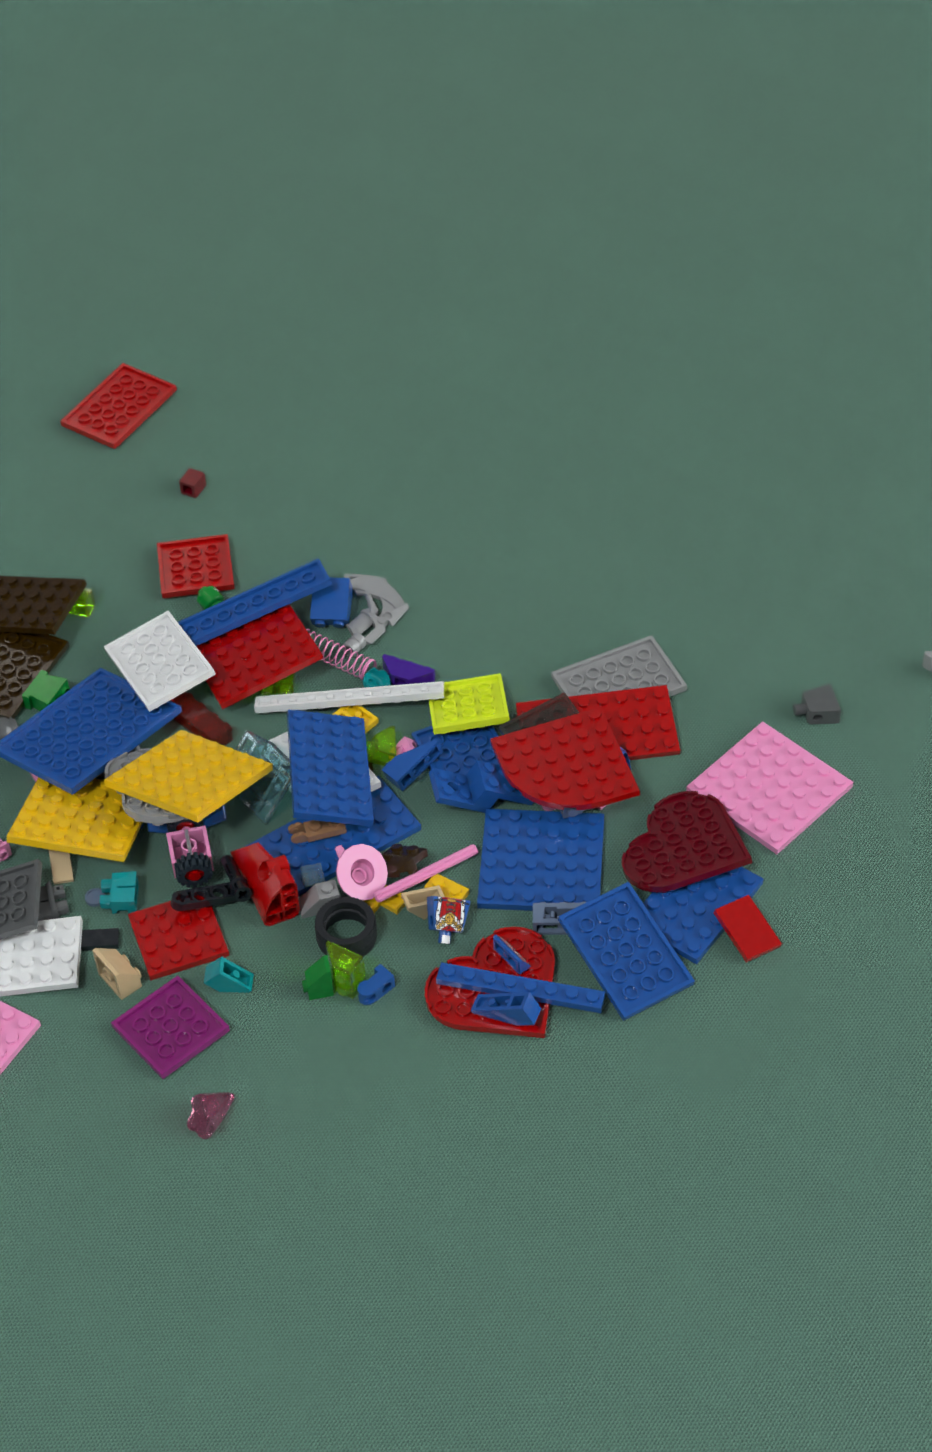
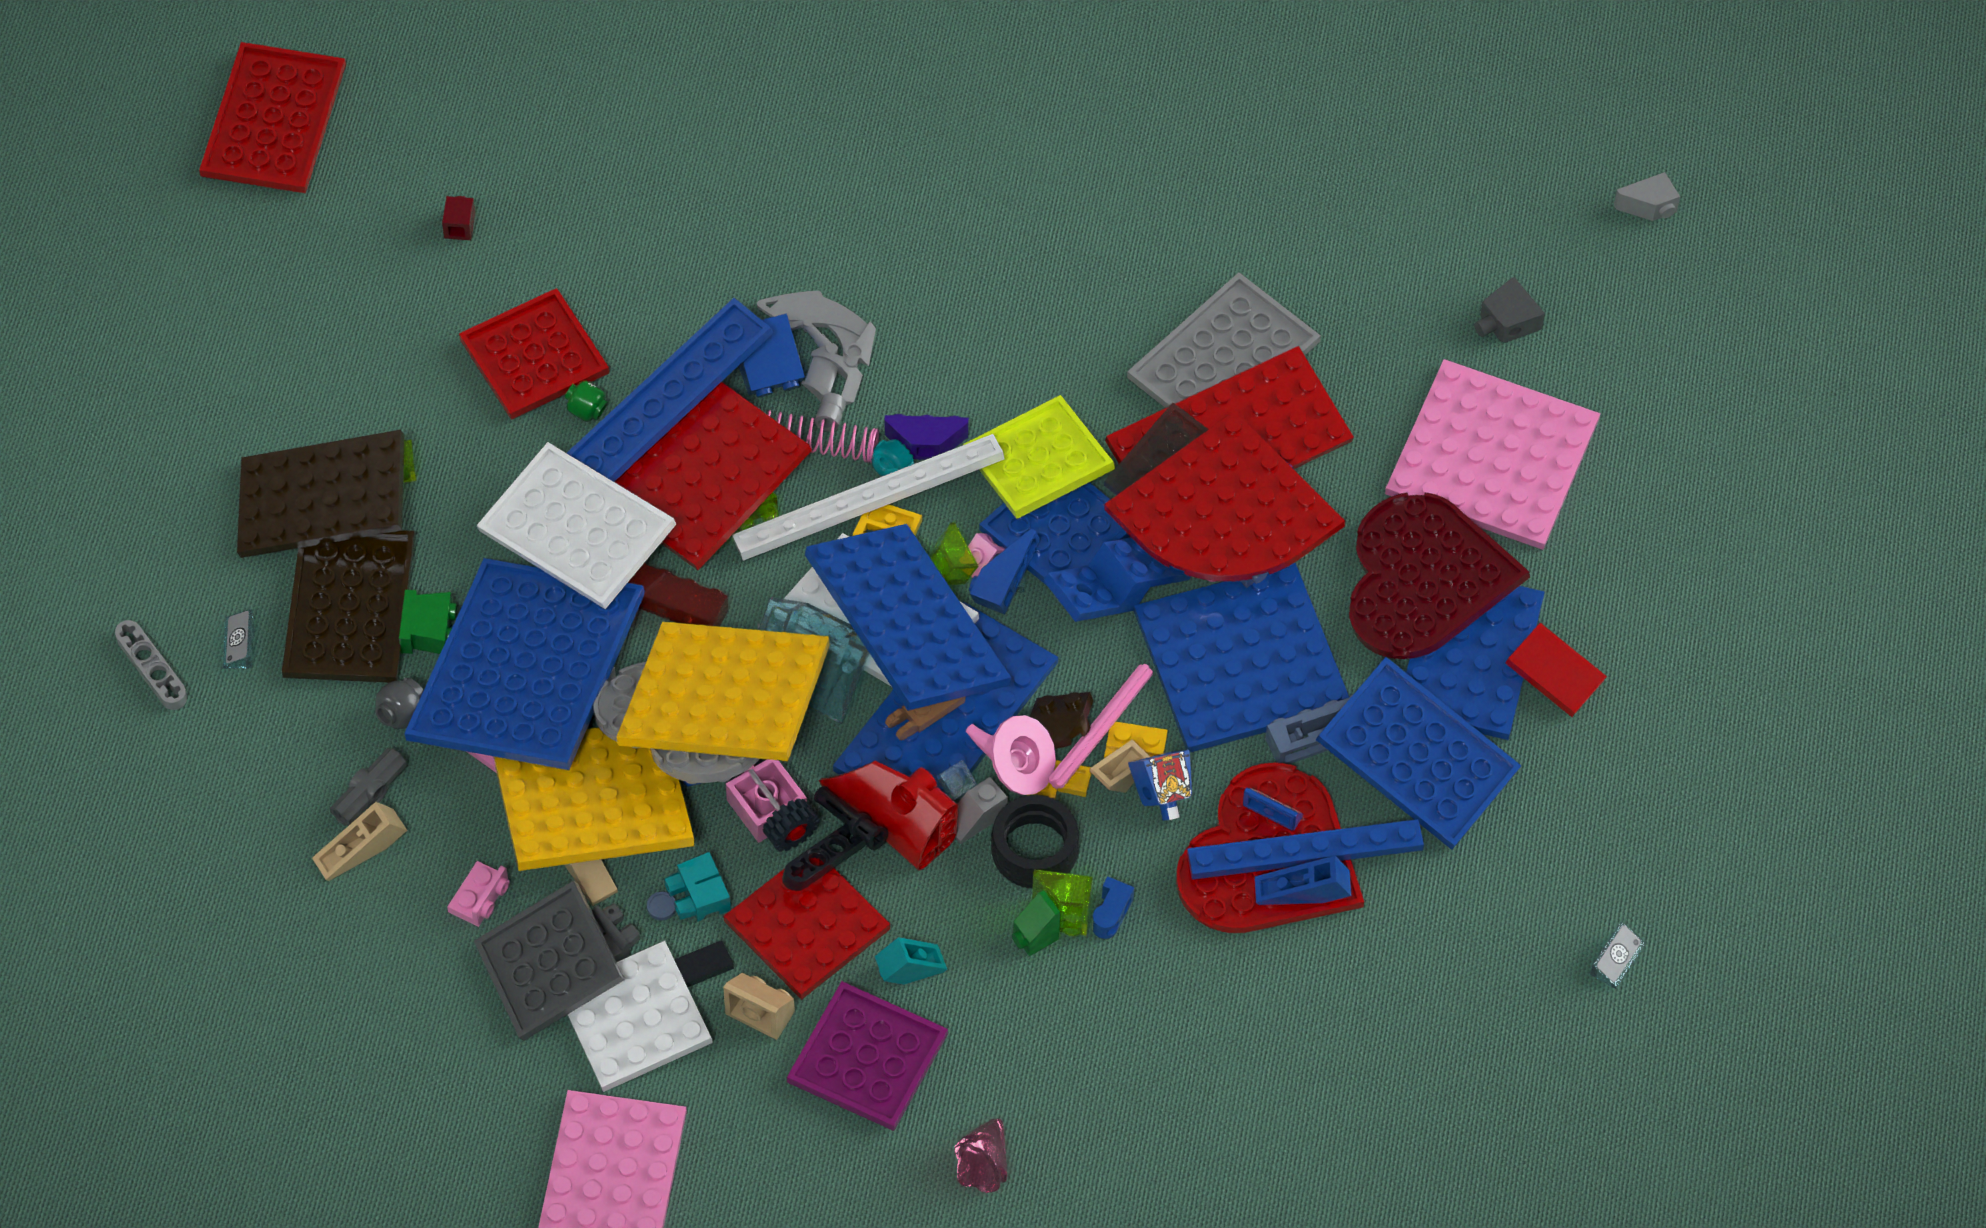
camera: 25 degrees left, 10 degrees up
(704, 1123) = (1617, 956): none -> slope

